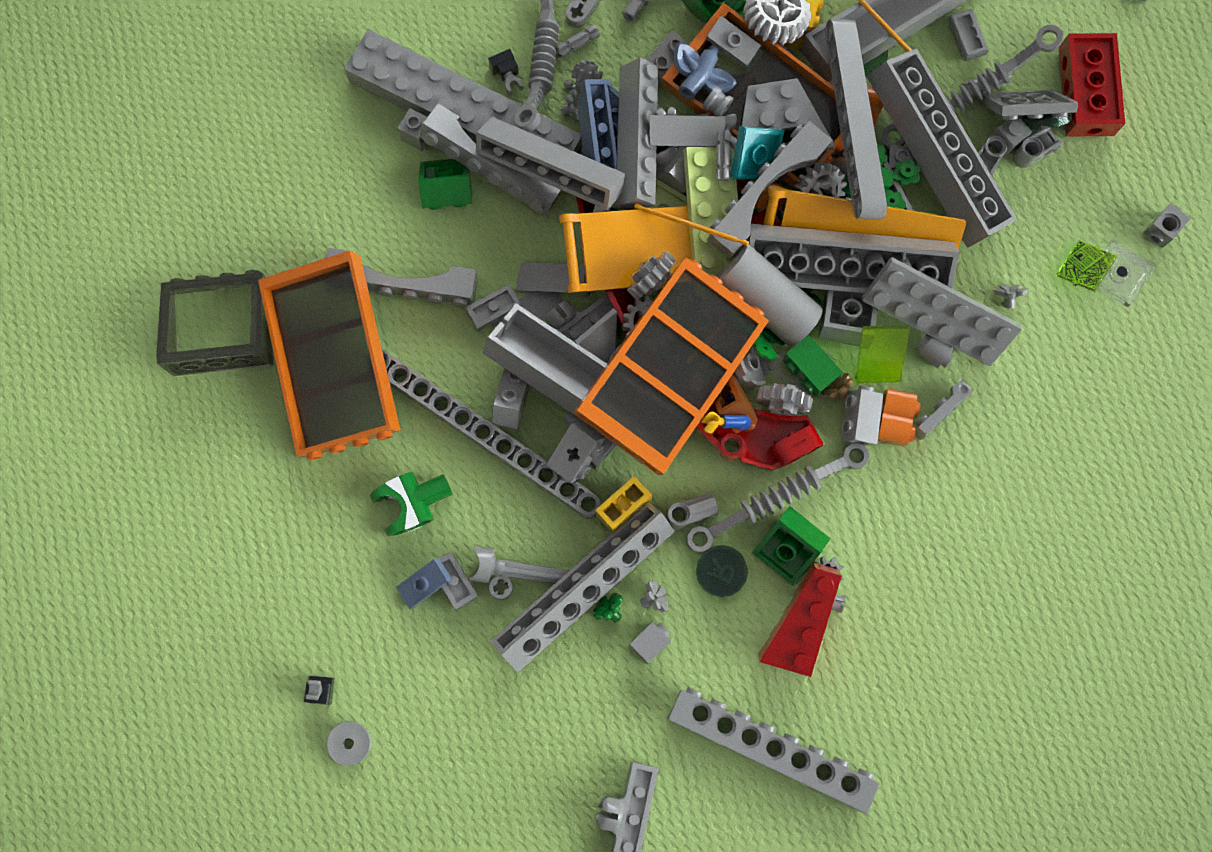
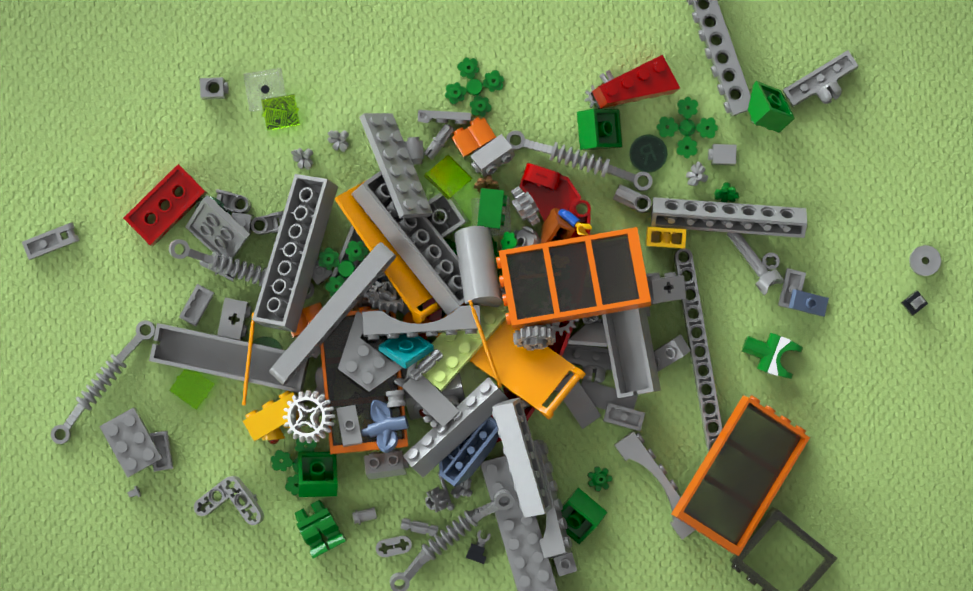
camera: 140 degrees left, 10 degrees up
(460, 234) = (596, 476): none -> green plant
(654, 734) = (769, 108): none -> green slope
(711, 634) = (687, 127): none -> green plant
(922, 382) = (439, 141): none -> light grey axle
(931, 48) = (226, 325): none -> light grey brick
(944, 467) = (474, 87): none -> green plant
(1022, 247) = (303, 158): none -> light grey plant

